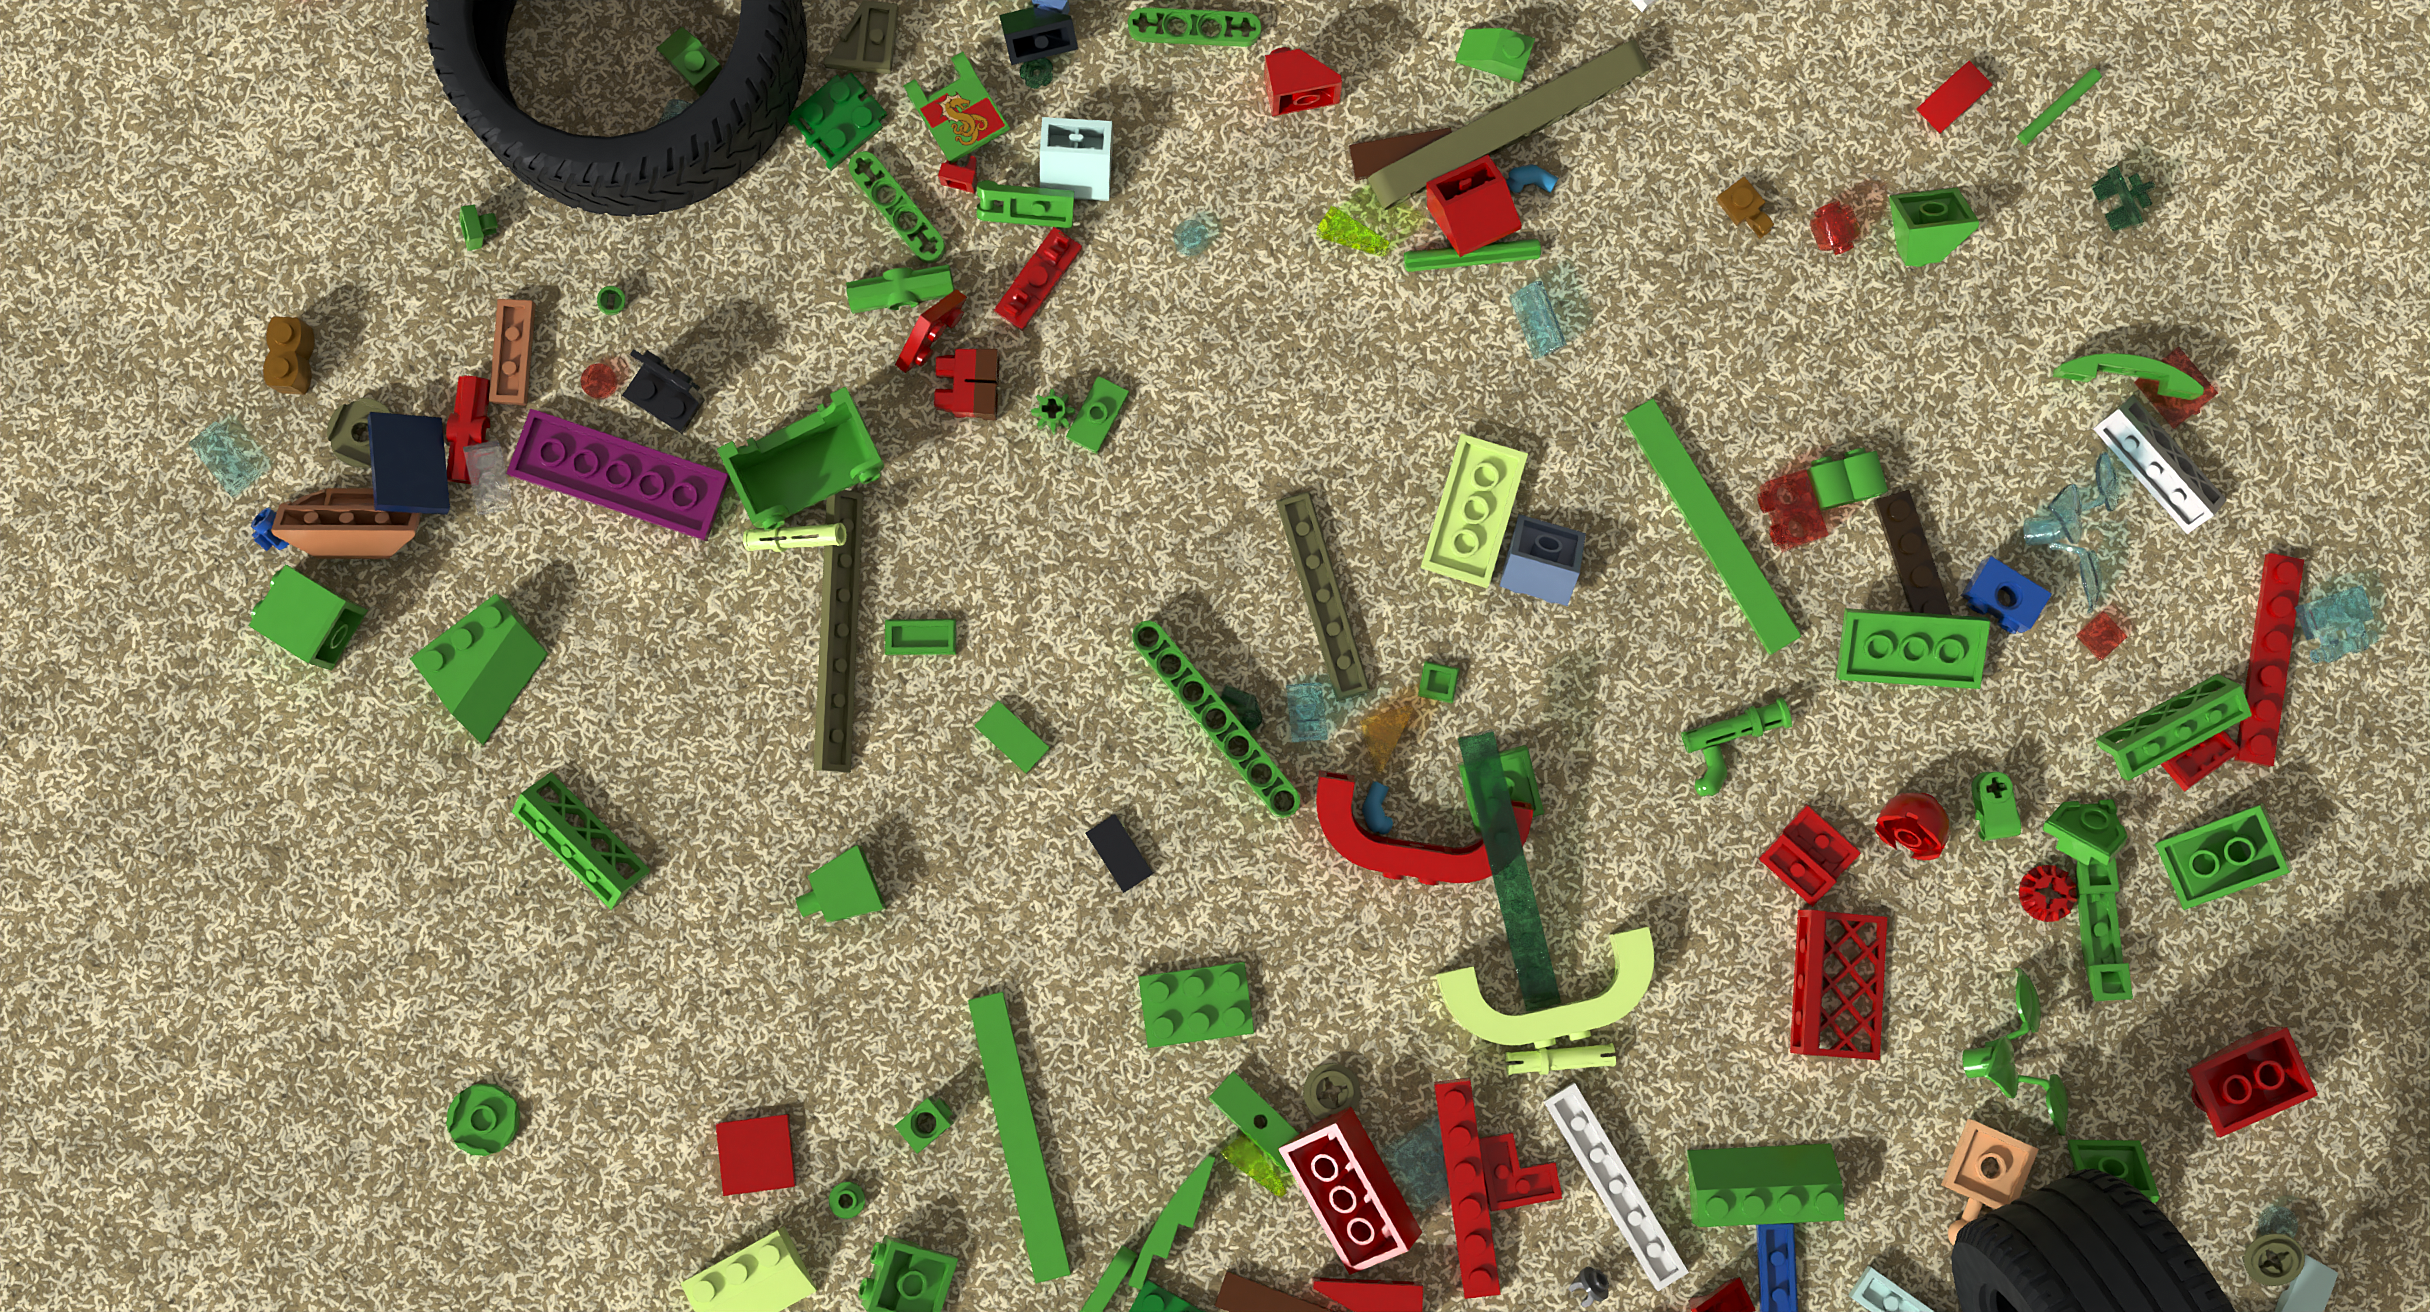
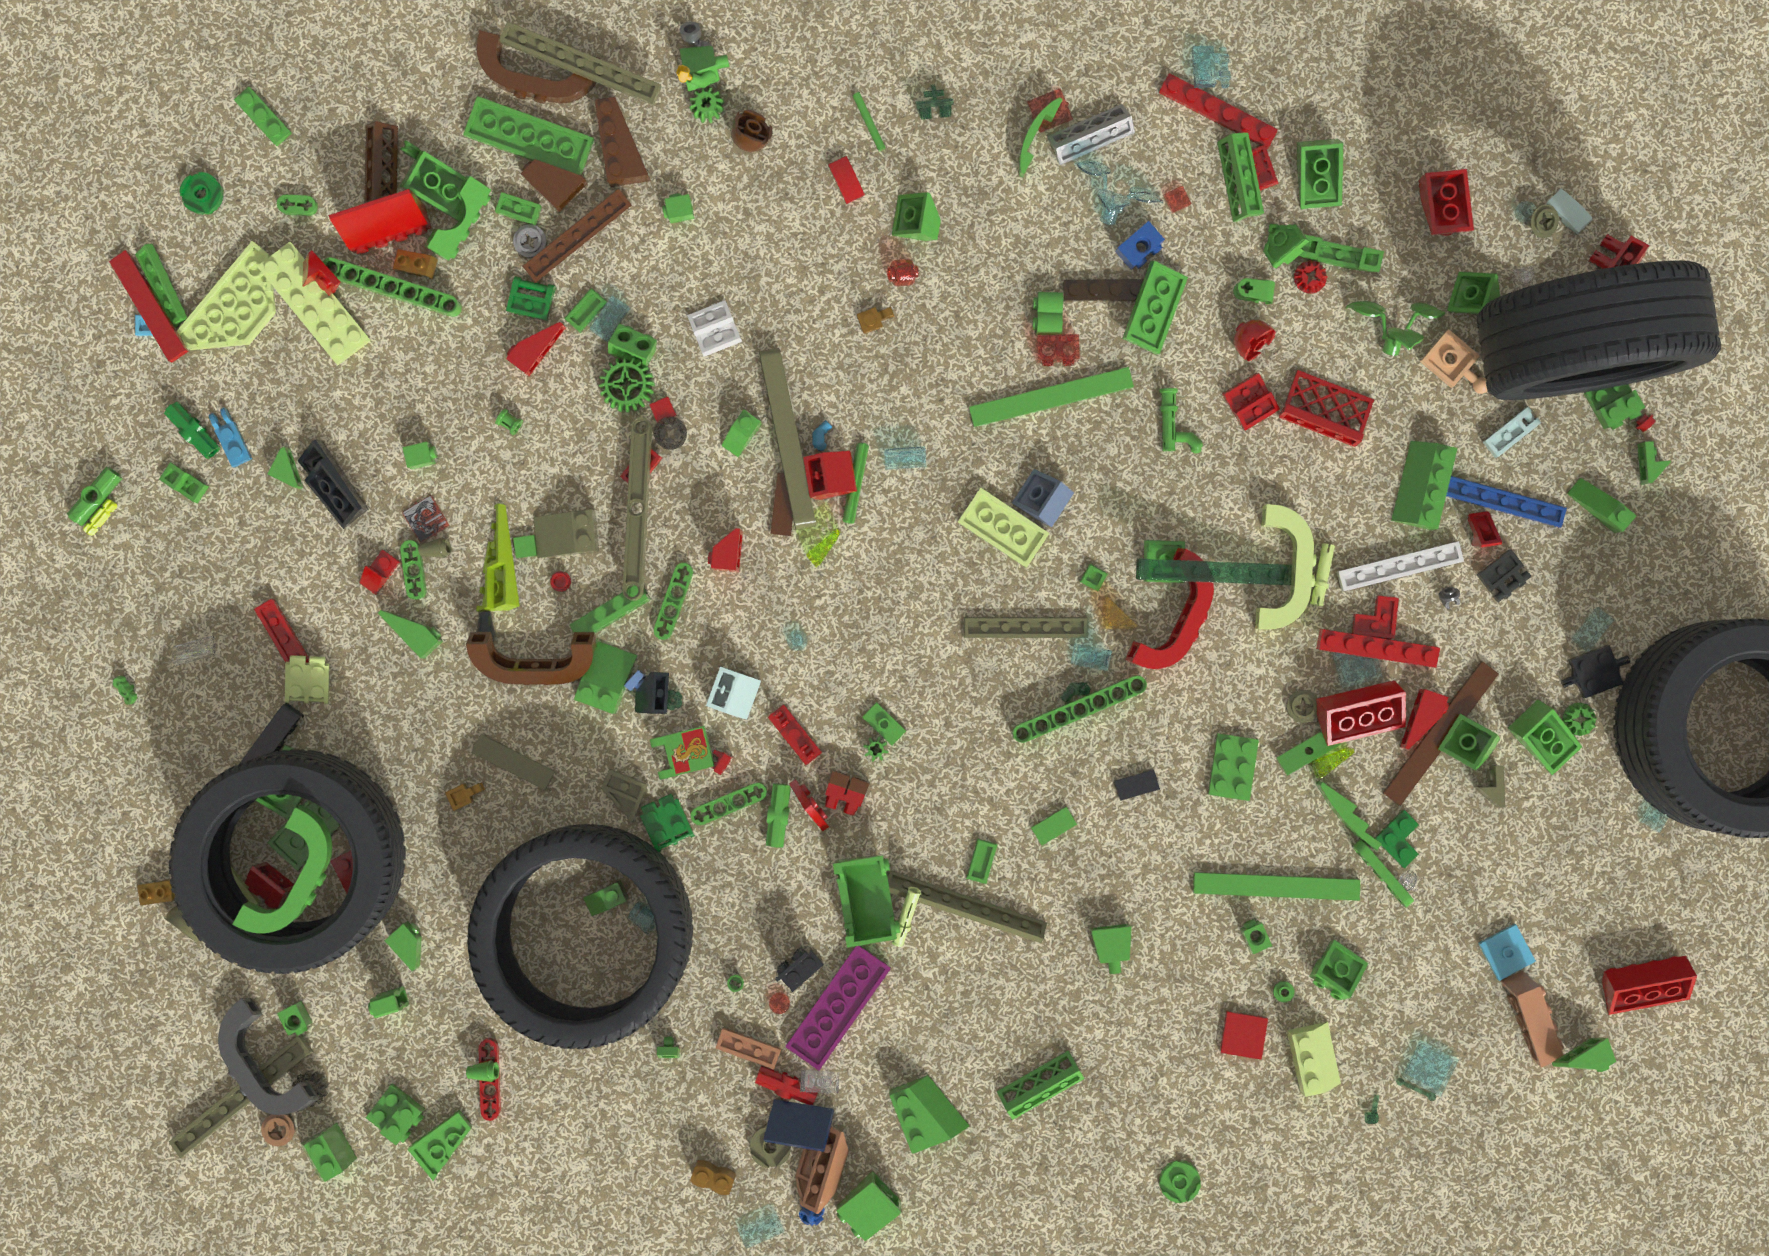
camera: 75 degrees left, 5 degrees up
(1025, 205) = (750, 730): bright green plate -> none
(1373, 810) = (1155, 636): dark azure arm -> none

